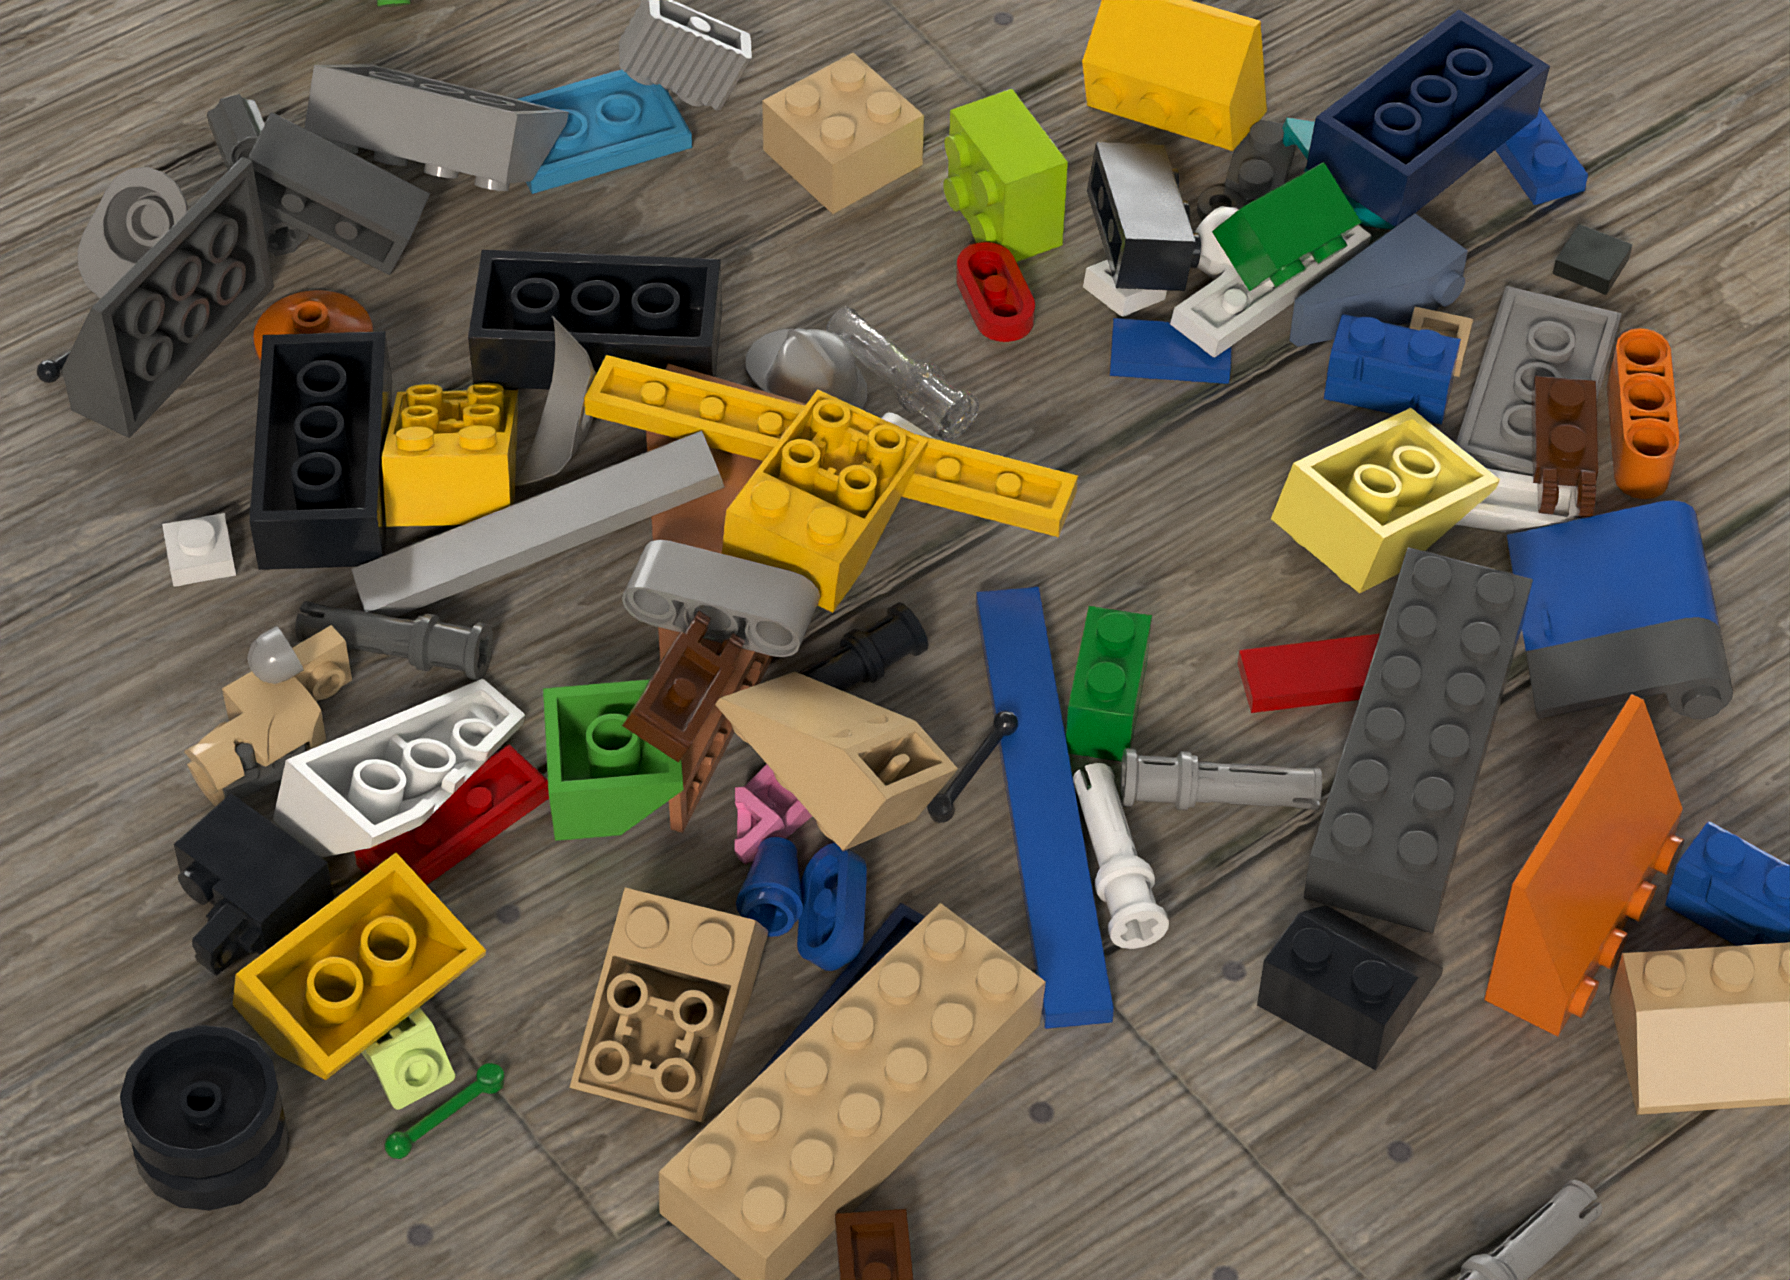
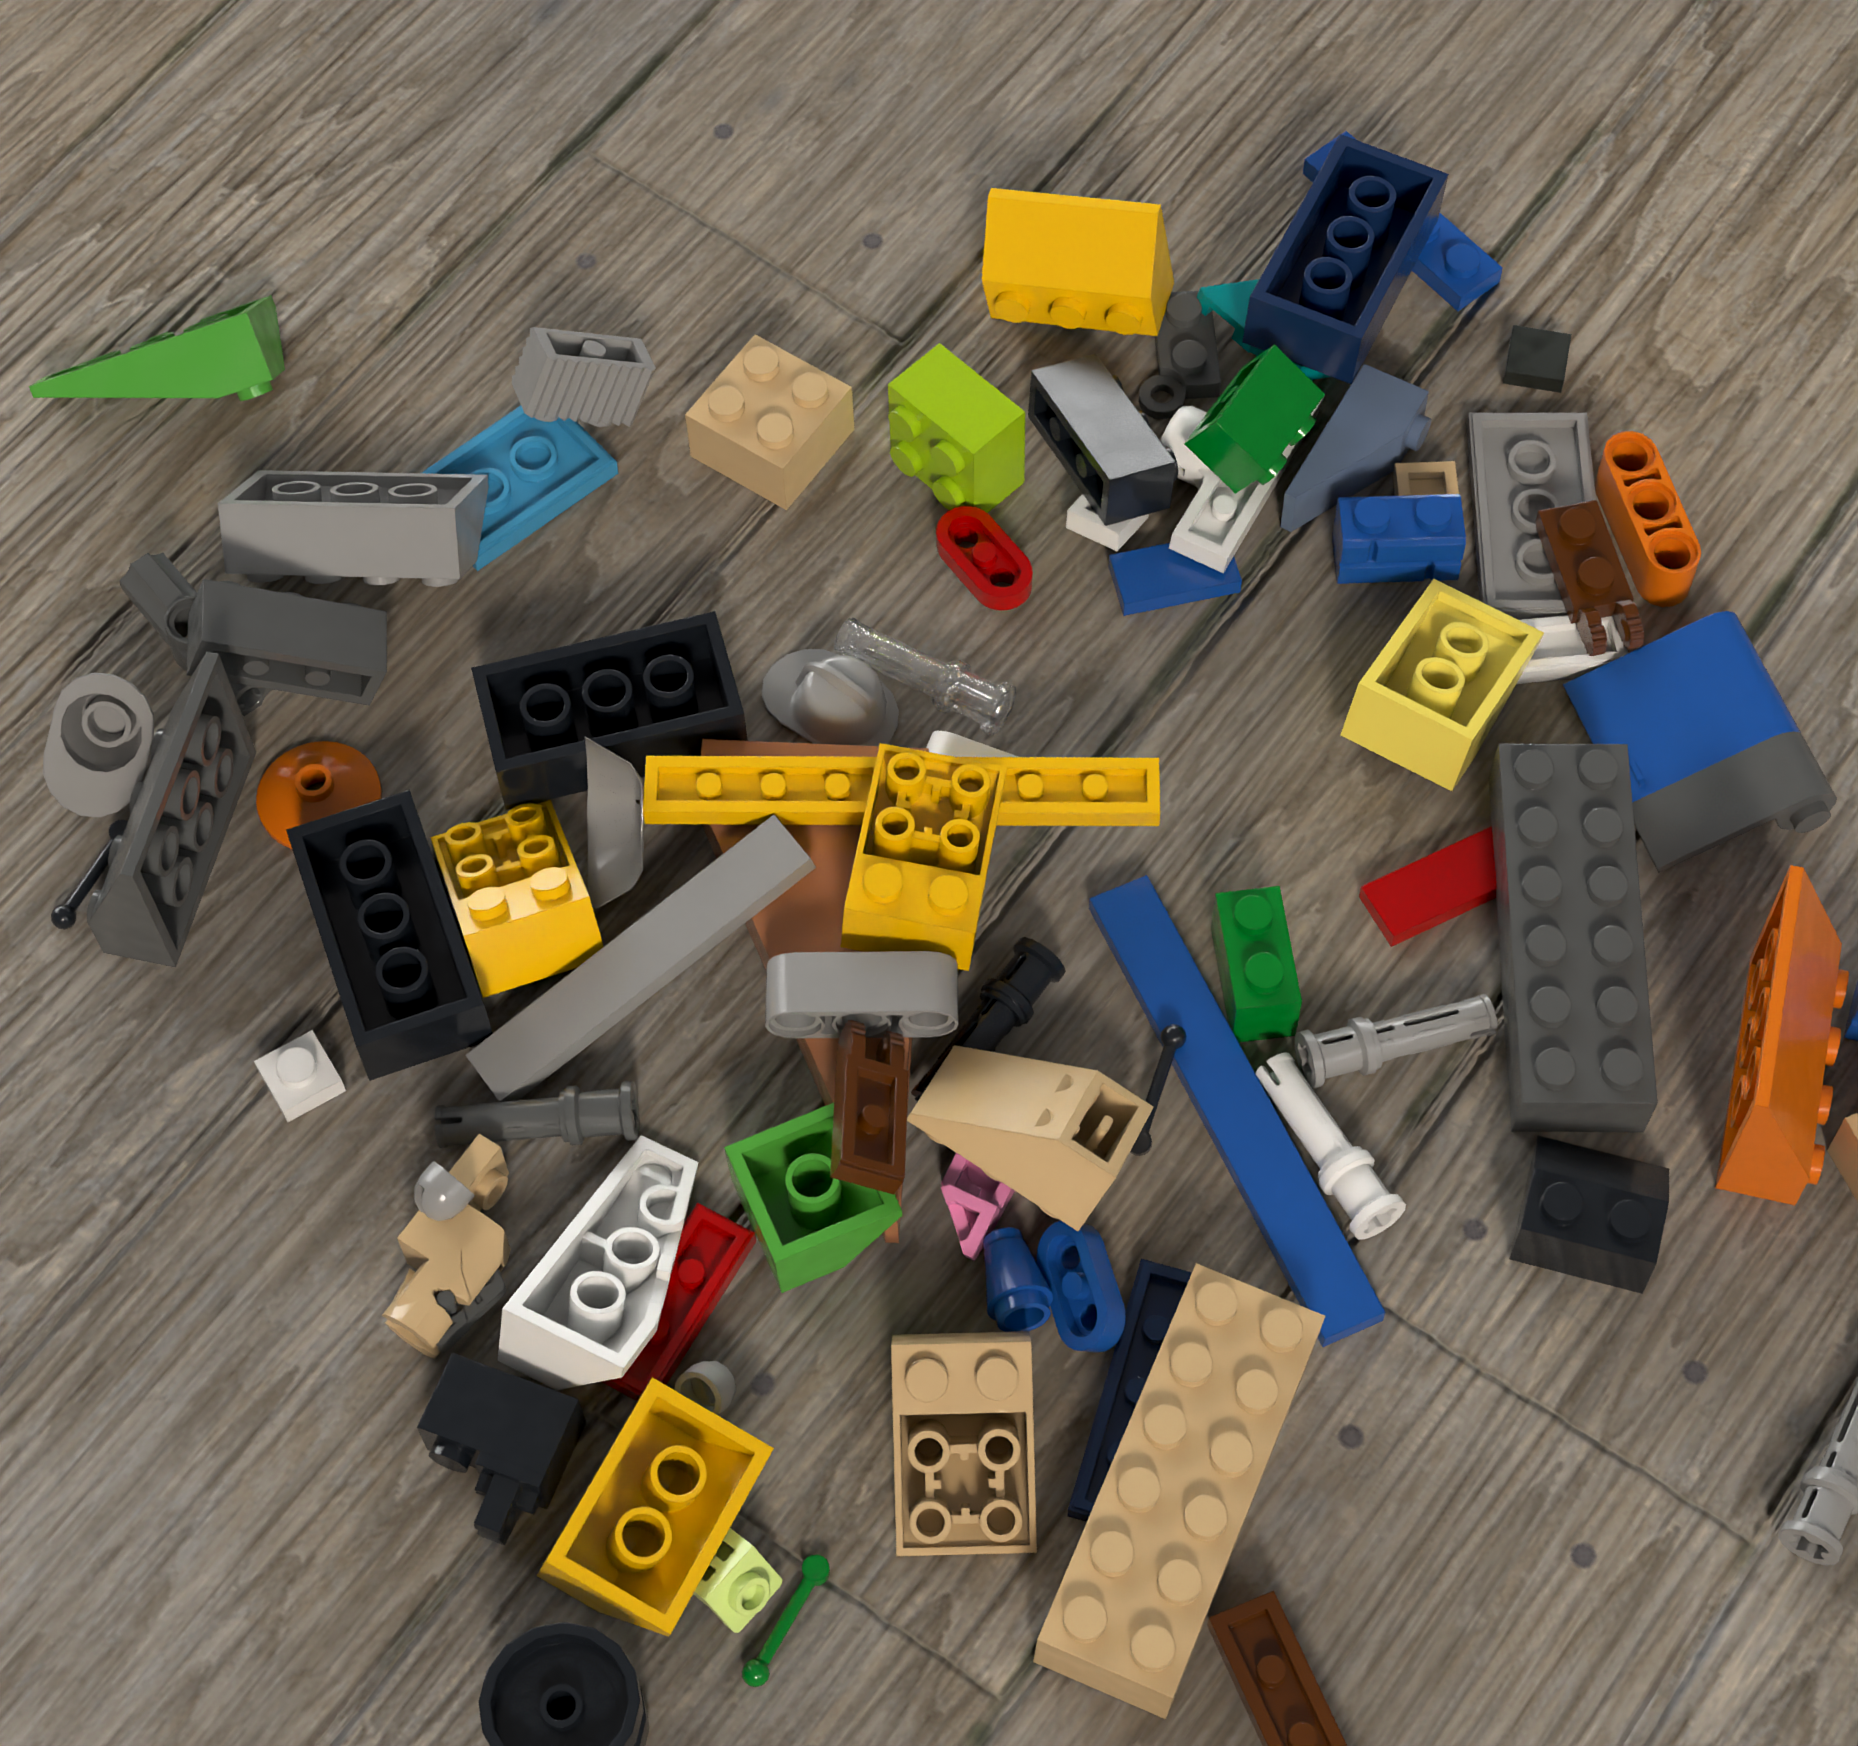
camera: 15 degrees left, 10 degrees up
(456, 891) = (708, 1385): none -> light grey hinge

